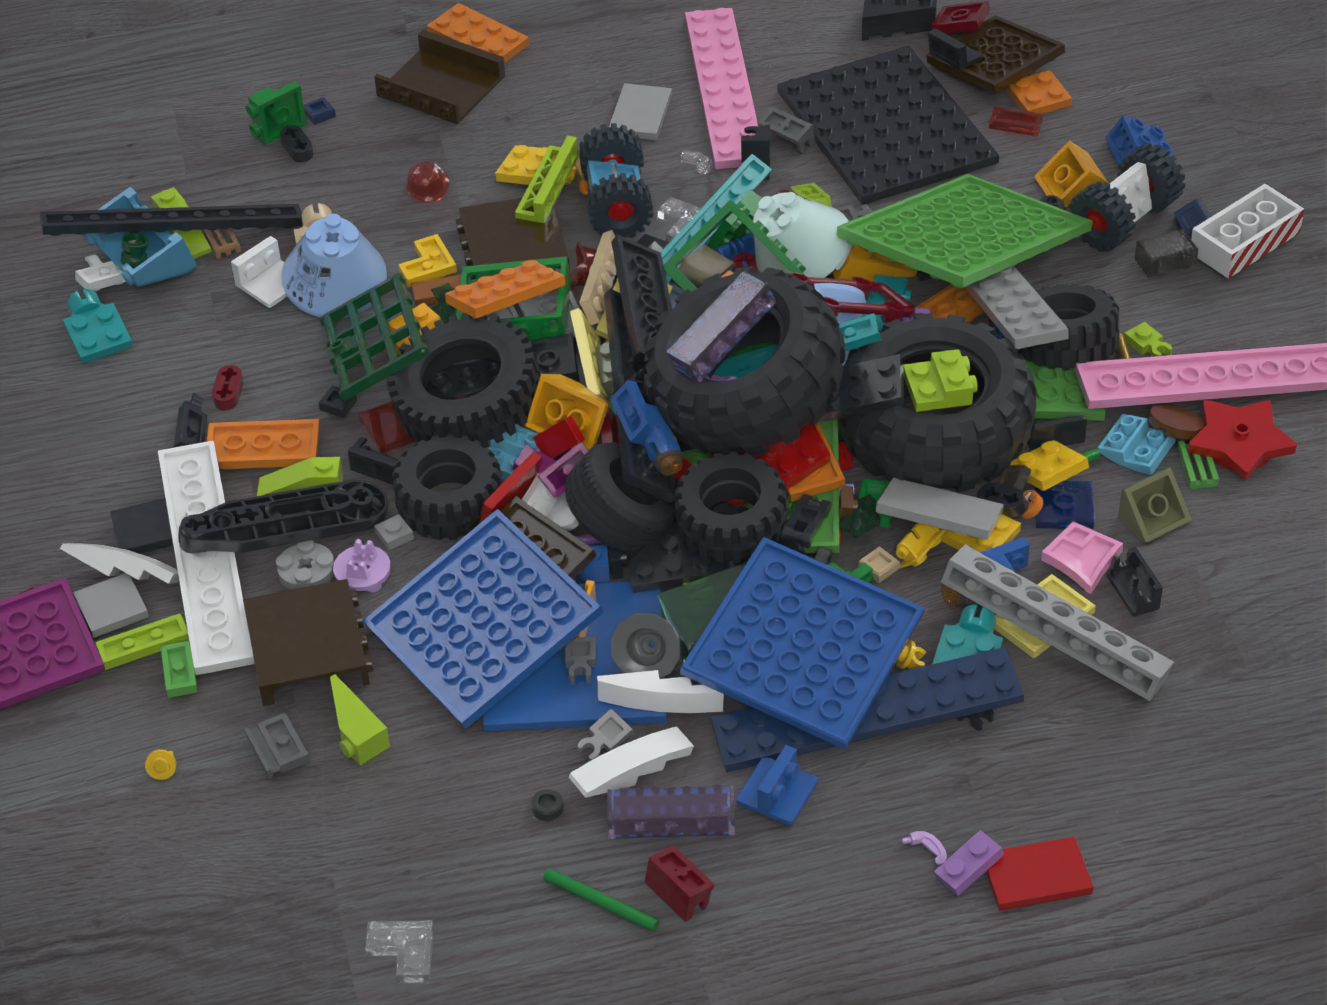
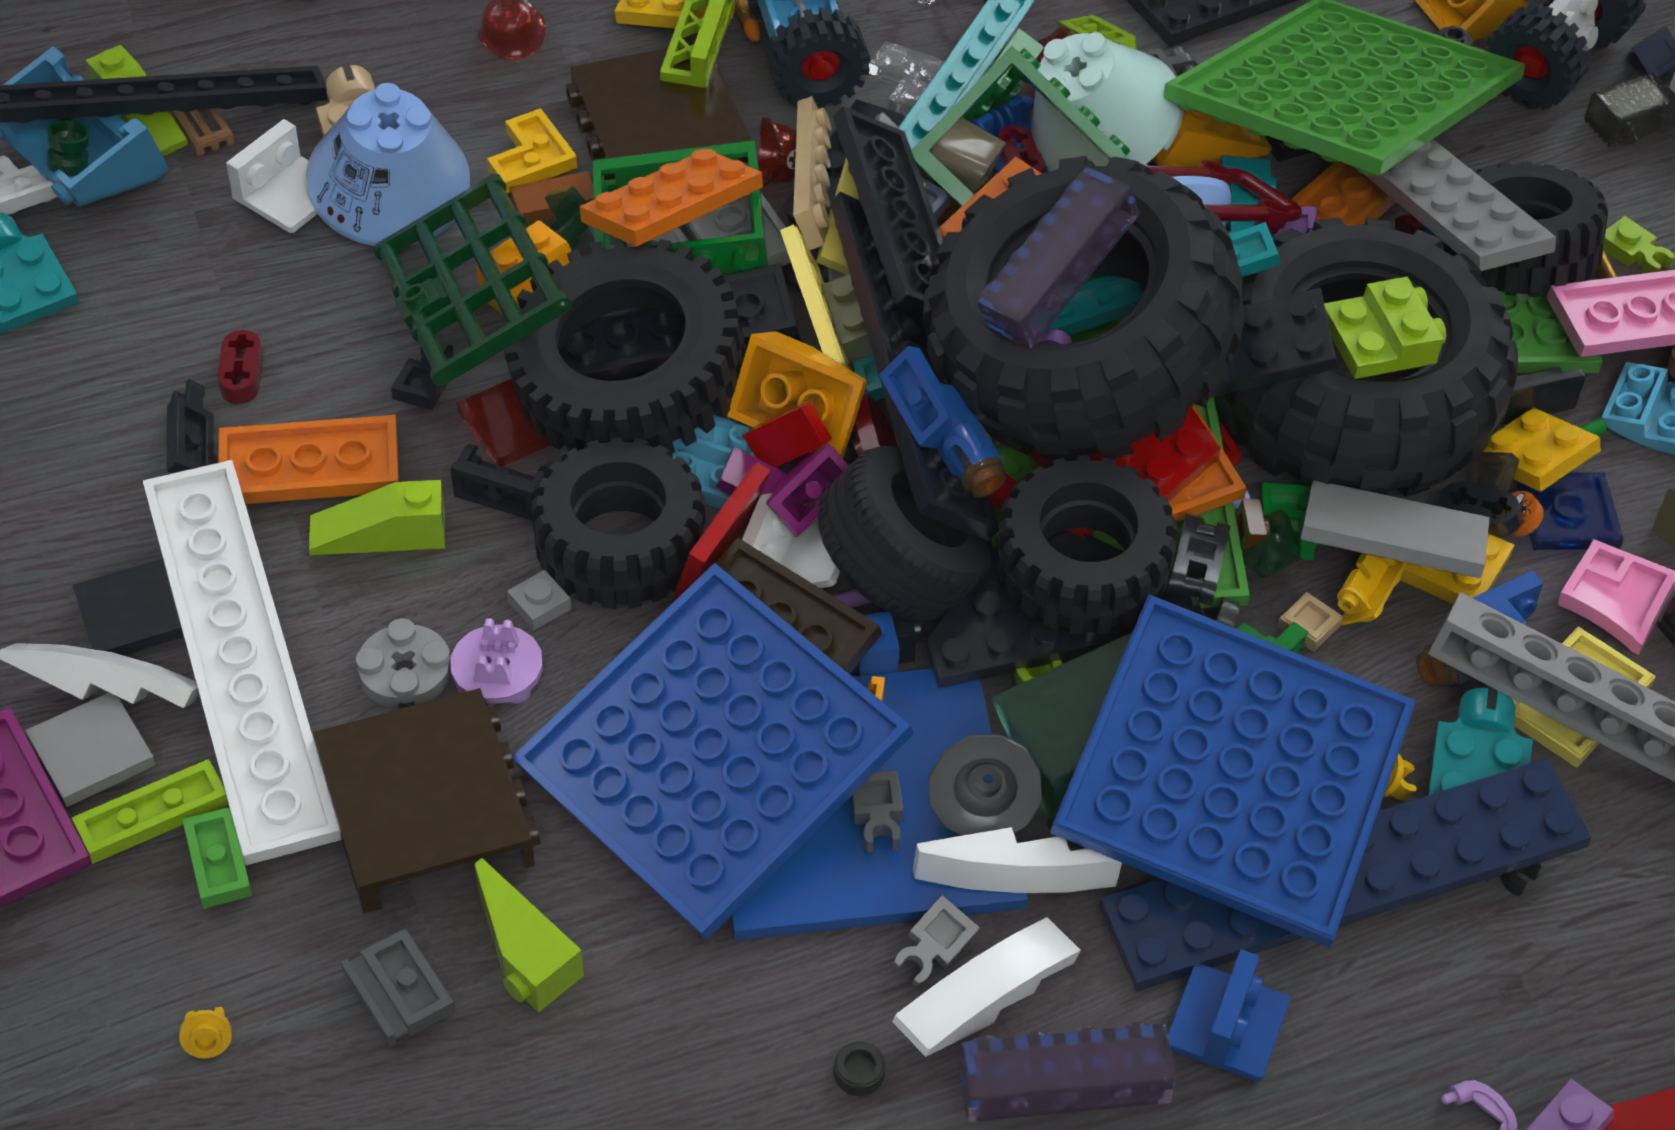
camera: 10 degrees left, 5 degrees up
(284, 518) = (361, 588): black beam -> none

